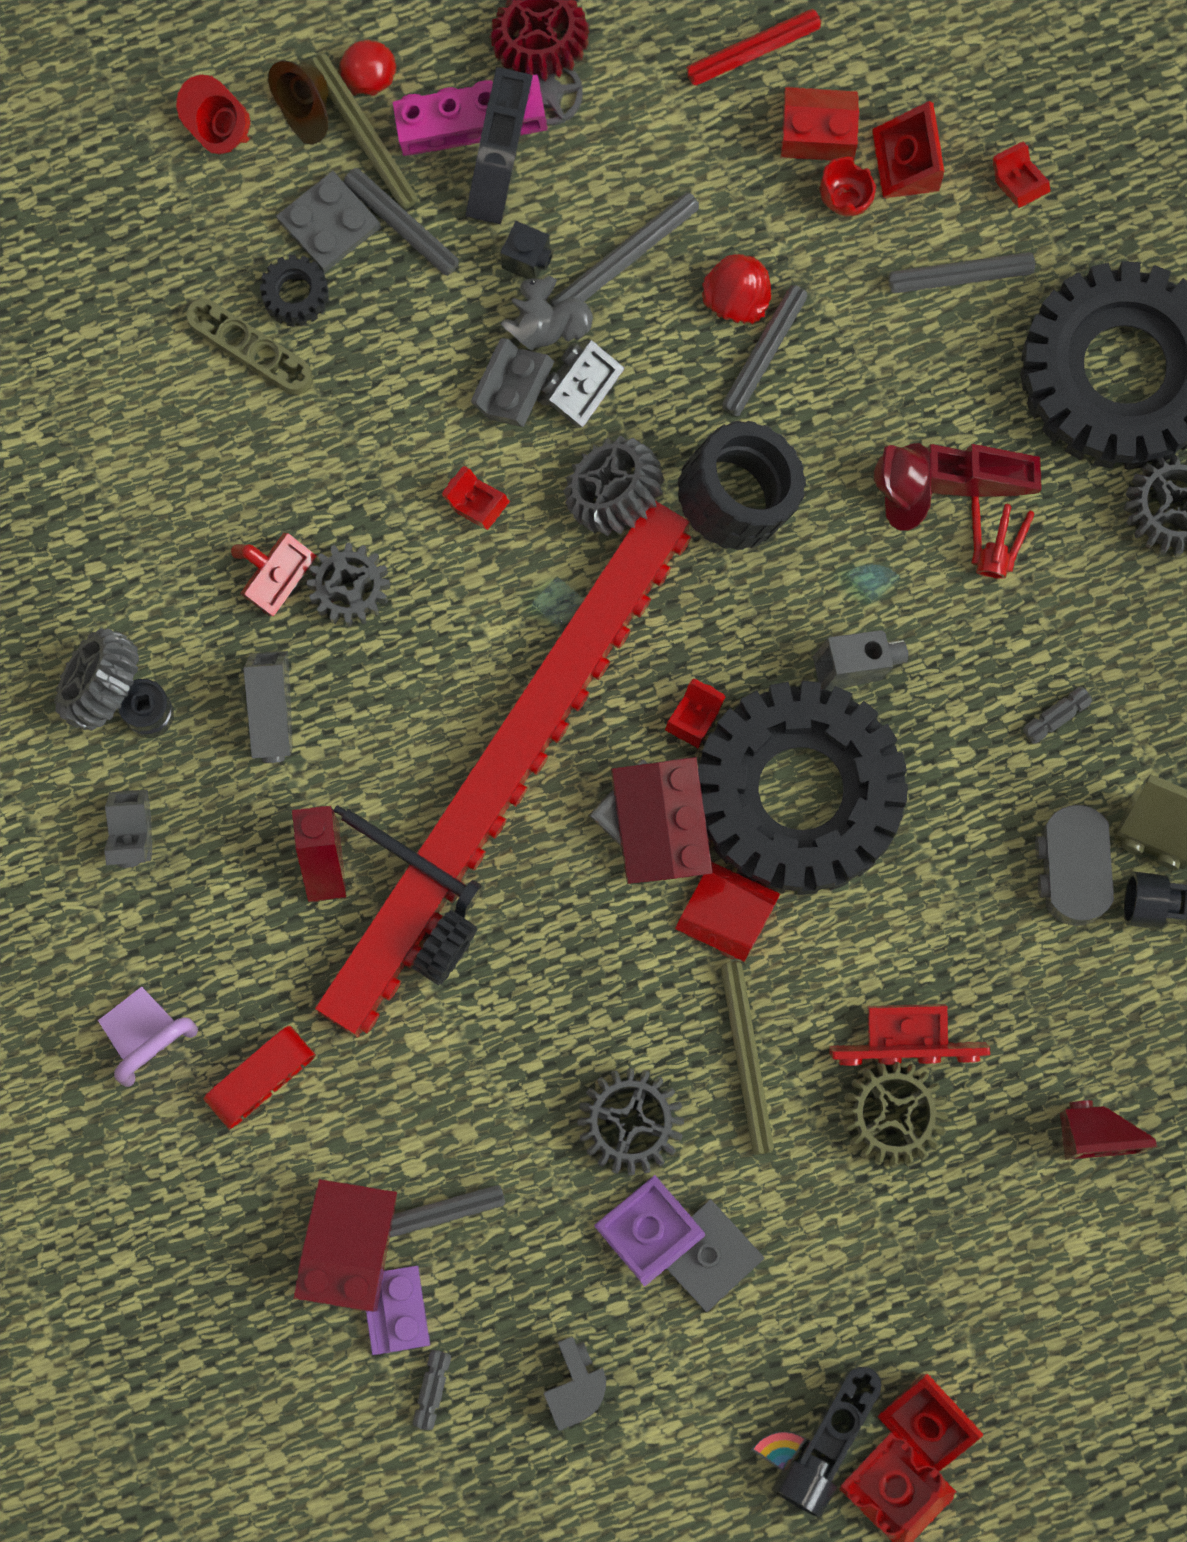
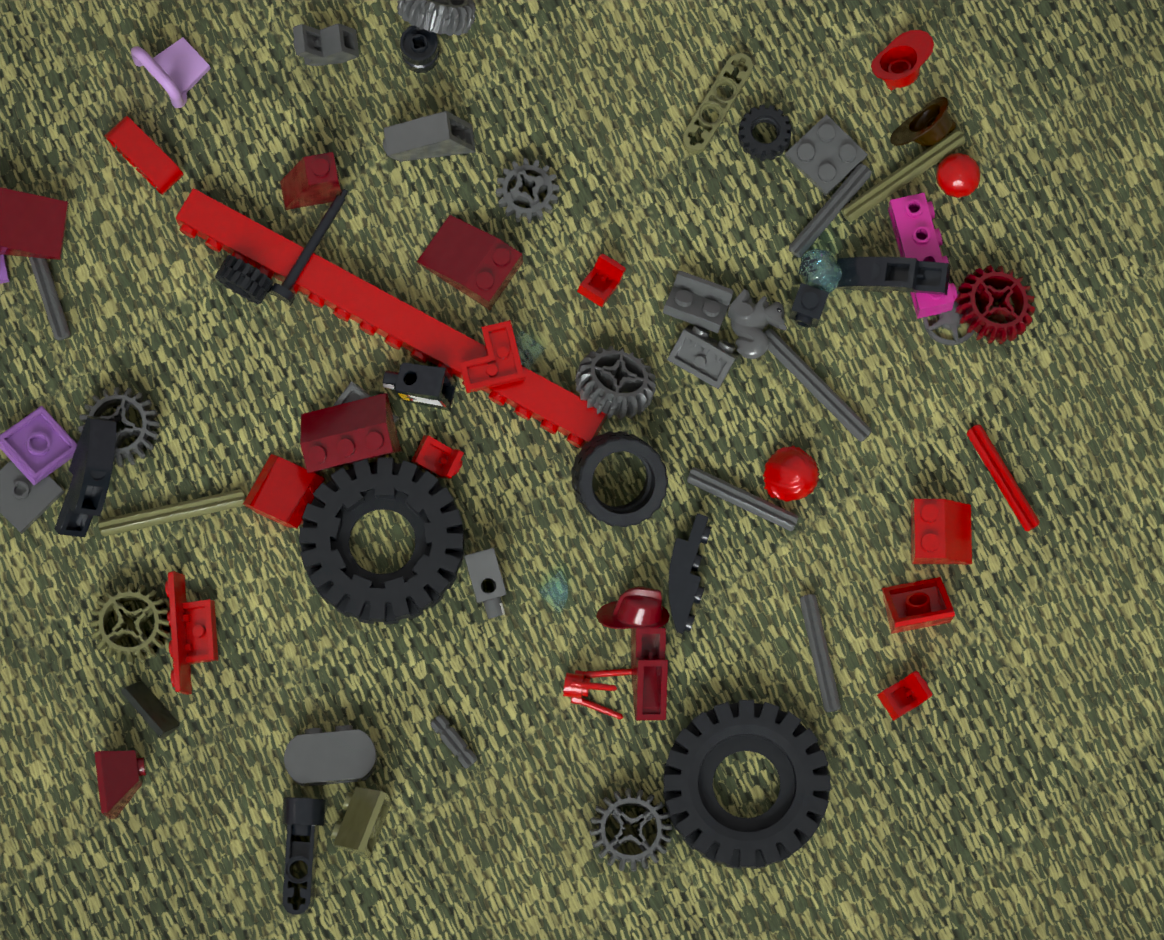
camera: 85 degrees right, 0 degrees up
(276, 572) = (533, 136): plate -> none
(436, 660) = (471, 261): none -> dark red slope
(482, 233) = (820, 270): none -> clear light blue head
(581, 618) = (500, 365): none -> red plate
(601, 710) = (422, 385): none -> black torso
(699, 1150) = (91, 477): none -> black slope
(843, 176) = (877, 549): red hair -> none
(874, 427) = (682, 585): none -> black slope
(1005, 1093) = (150, 709): none -> pearl dark grey slope

